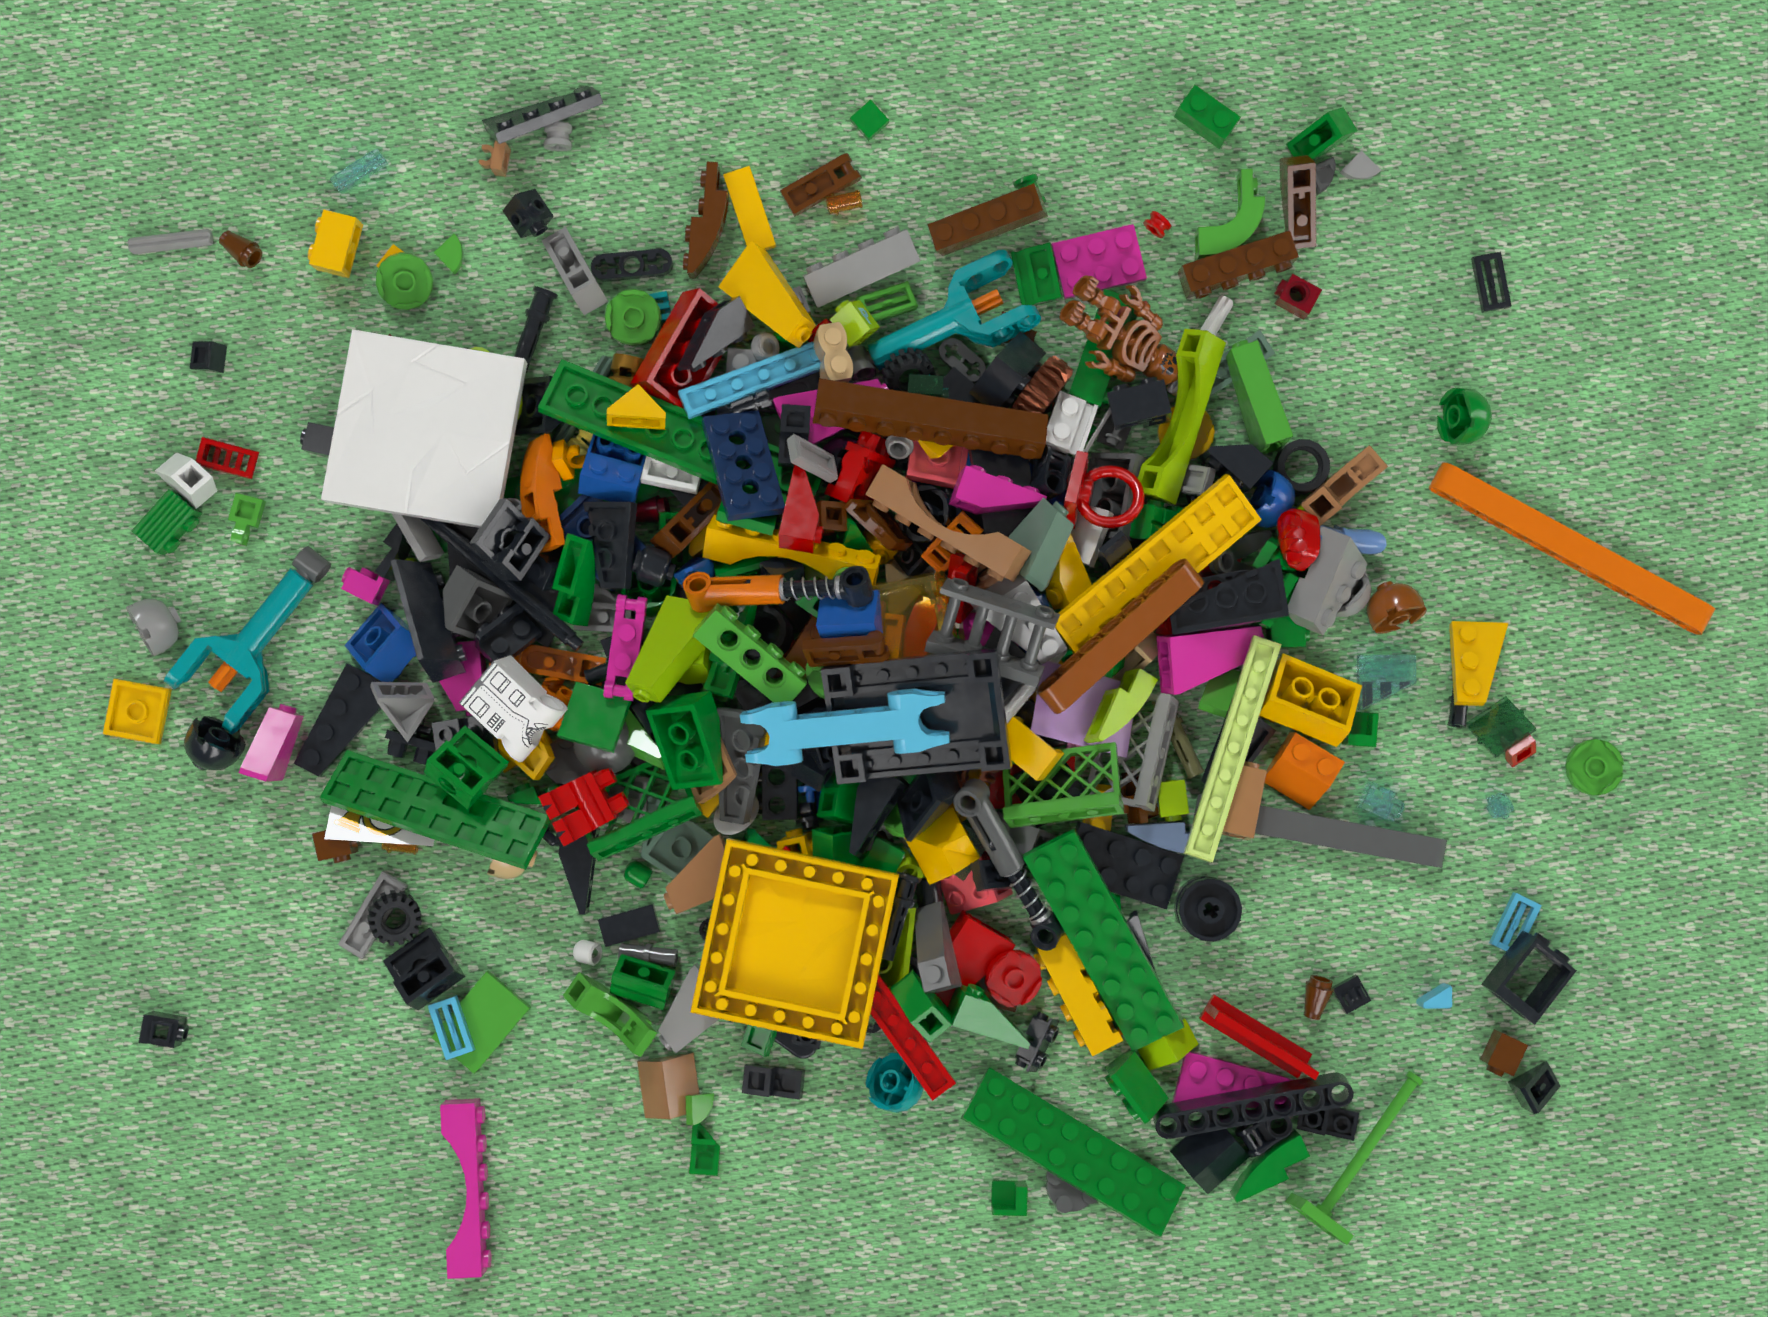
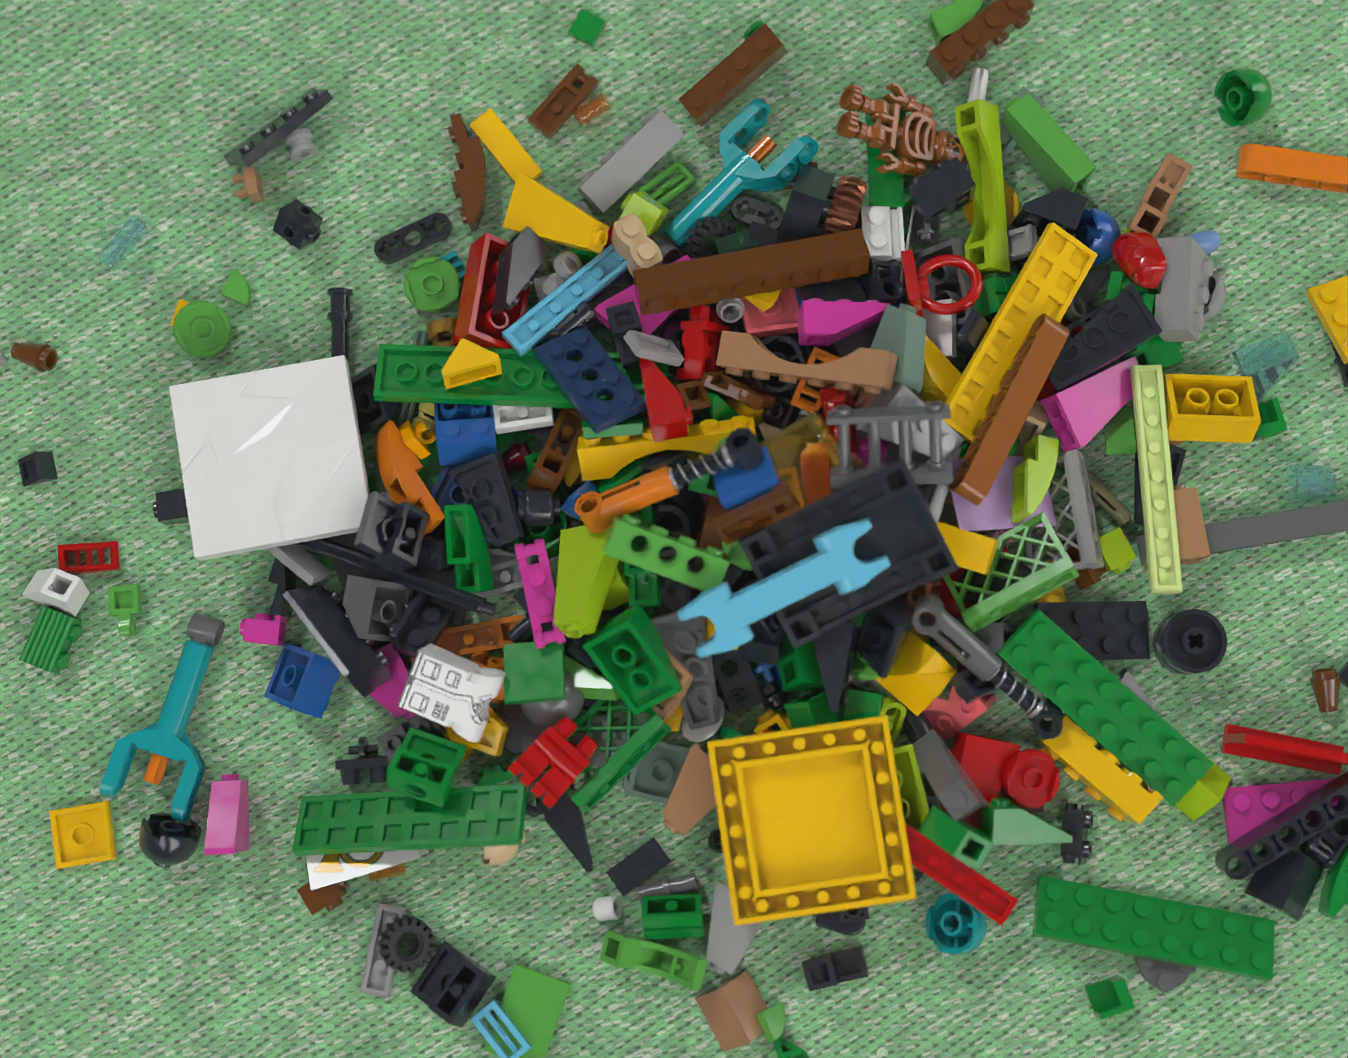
camera: 20 degrees left, 5 degrees down
(155, 624) = (72, 742): light grey cylinder -> none
(335, 243) = (123, 317): yellow brick -> none
(340, 720) = (287, 764): black wing -> none
(404, 703) = (343, 729): light grey slope -> none
(574, 271) = (361, 262): light grey slope -> none
(637, 874) = (628, 813): green piece -> none
(759, 1040) = (806, 930): green tile -> none
(902, 903) = (900, 741): black pin -> none
(1036, 275) = (796, 110): green plate -> none
(1106, 255) = (857, 64): dark pink plate -> none
(1131, 1078) = (1191, 839): green slope -> none
(1157, 224) = (890, 26): red bush -> none
(1163, 834) = (1123, 587): sand blue slope -> none
(1302, 770) = (1227, 477): orange slope -> none
(1307, 290) = (1053, 36): dark red brick -> none
(1321, 458) = (1120, 178): black tyre -> none
(1394, 605) = (1249, 293): dark orange cylinder -> none

